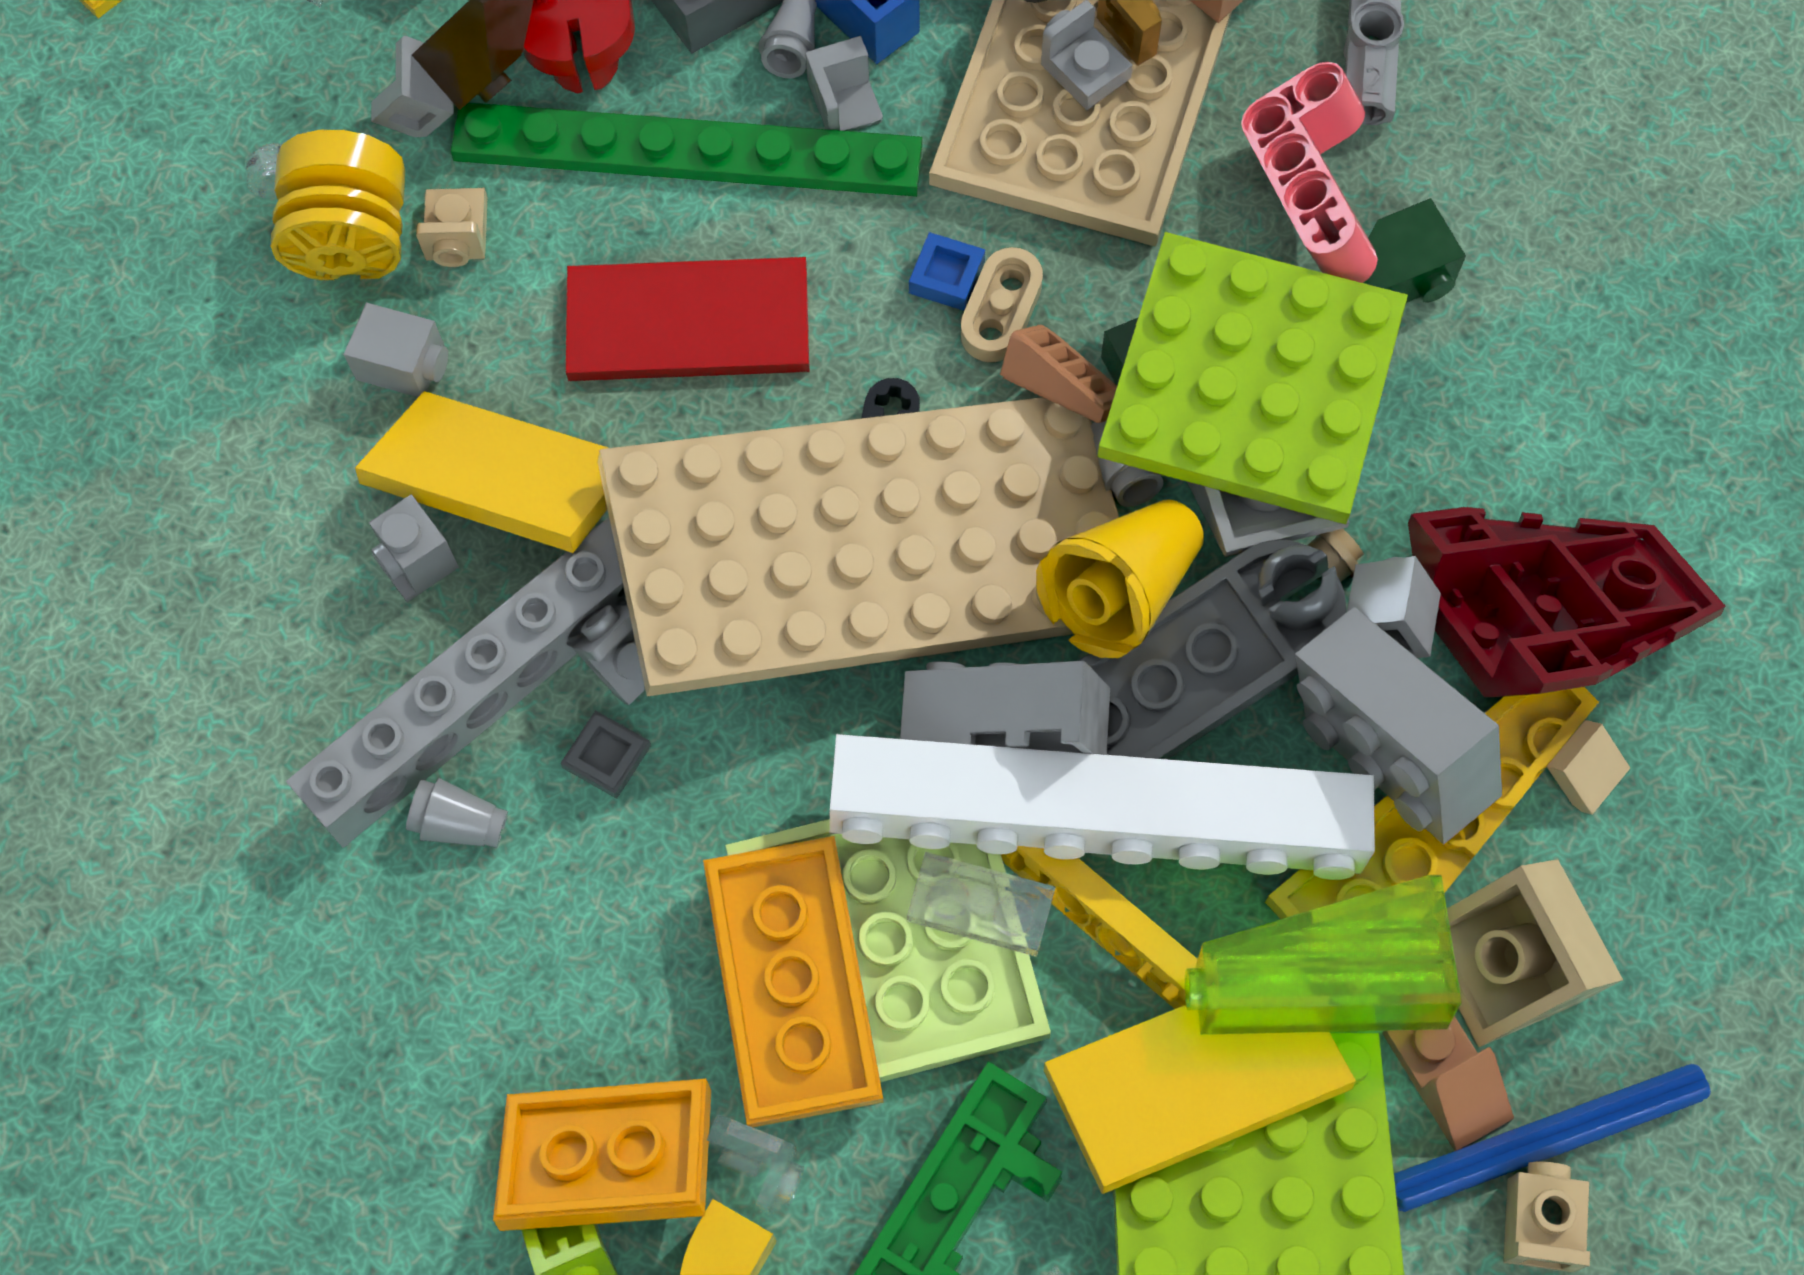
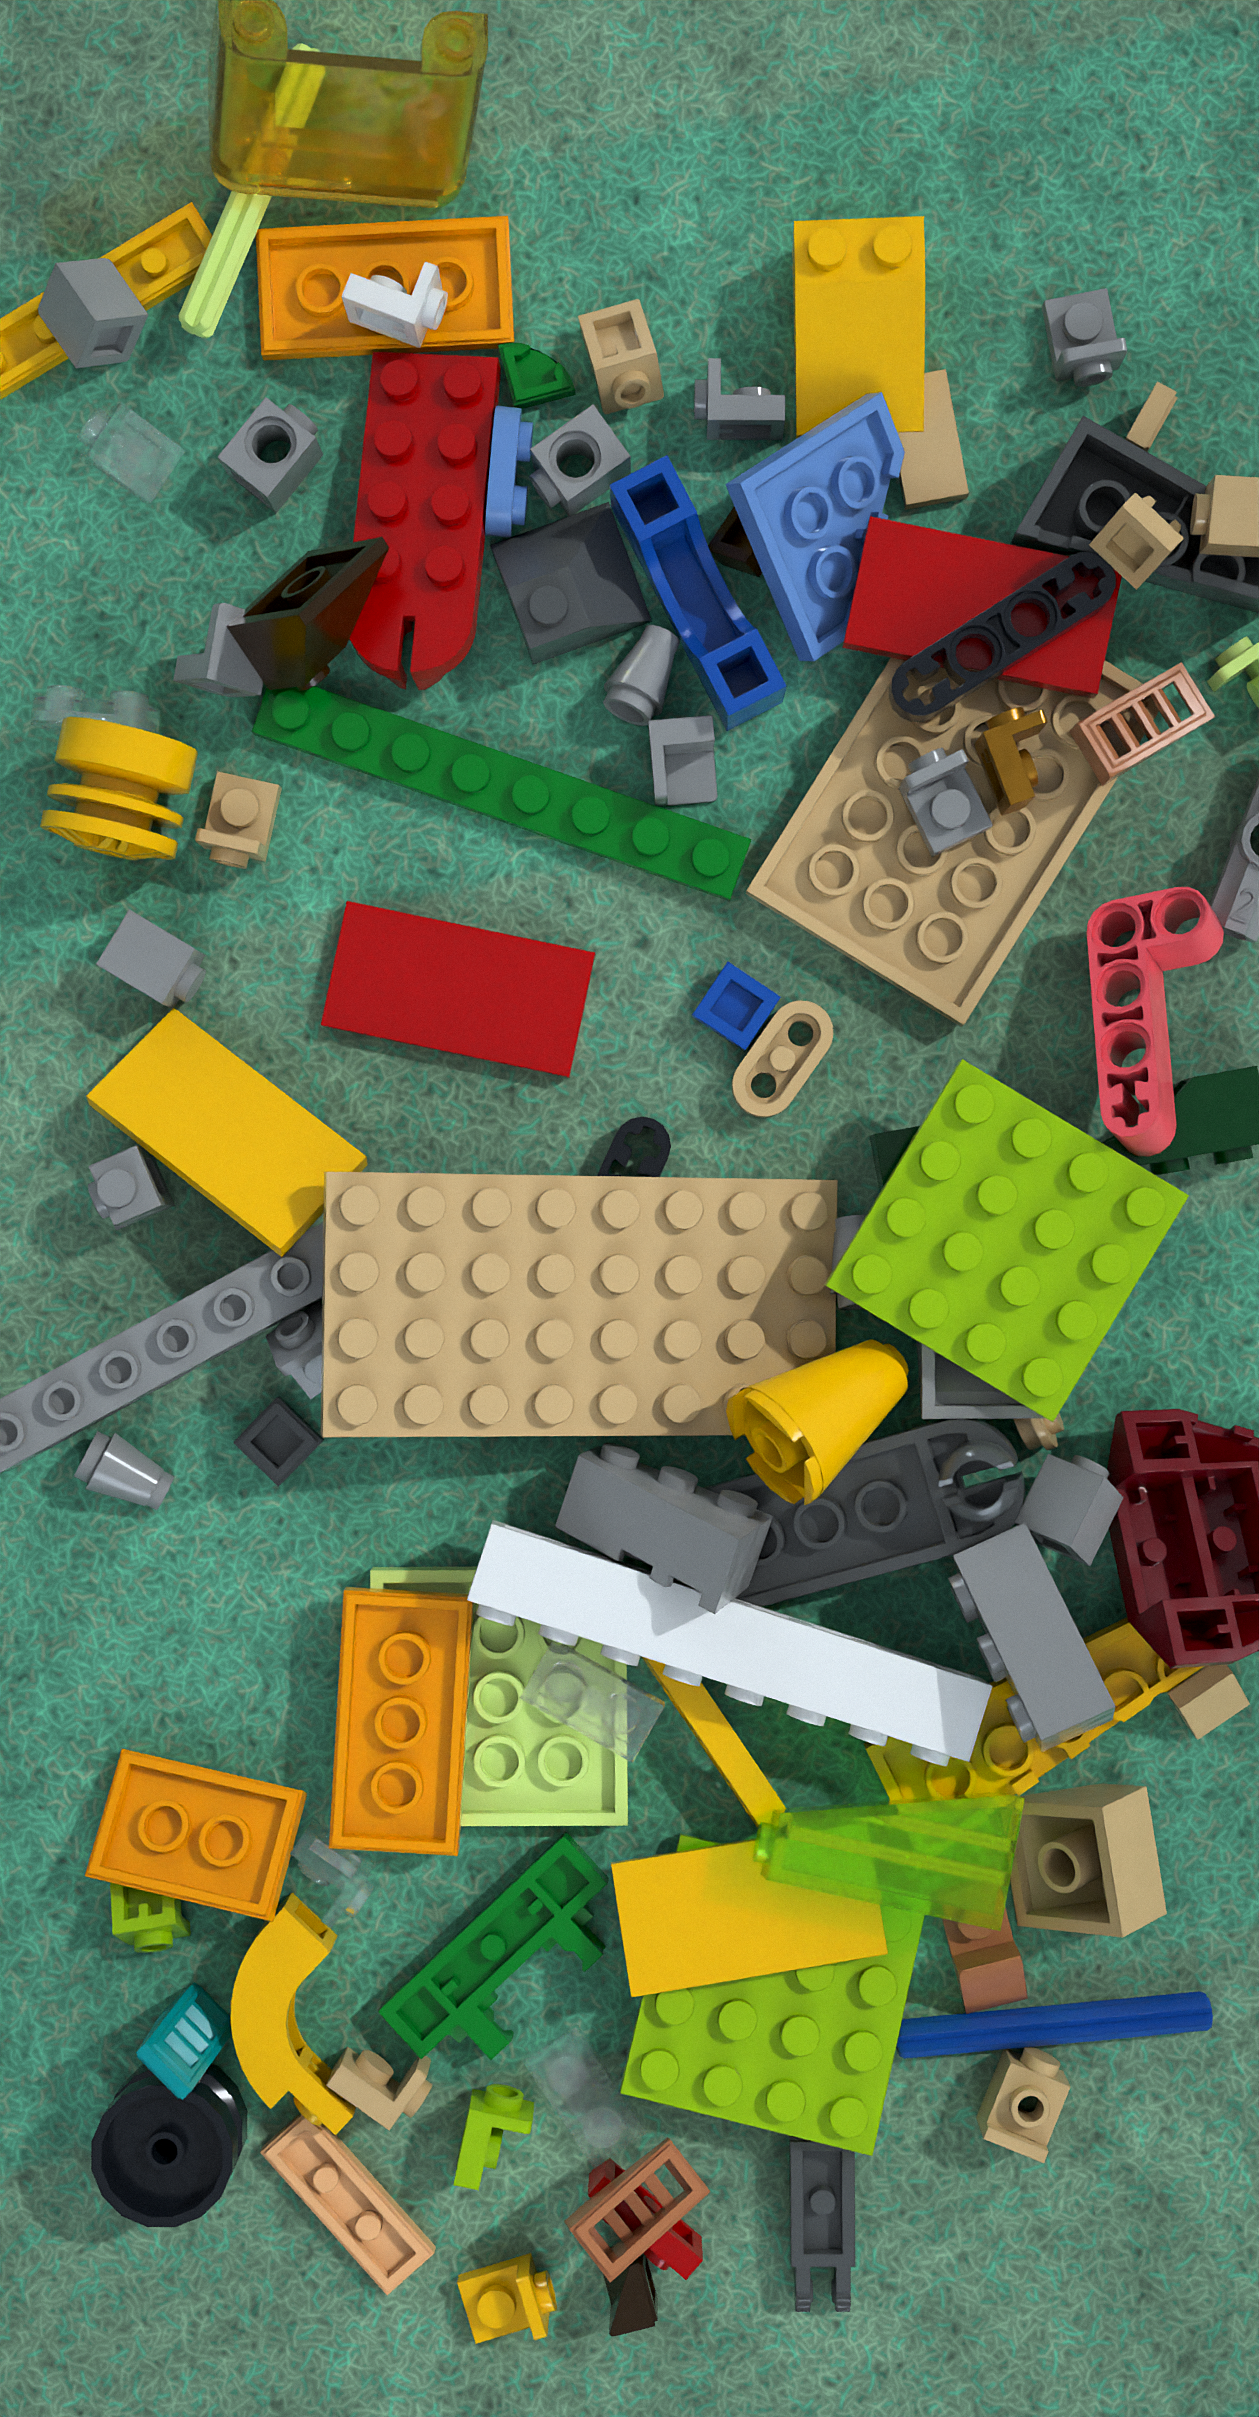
camera: 15 degrees right, 20 degrees up
(1056, 371) = (808, 1152): nougat slope -> none

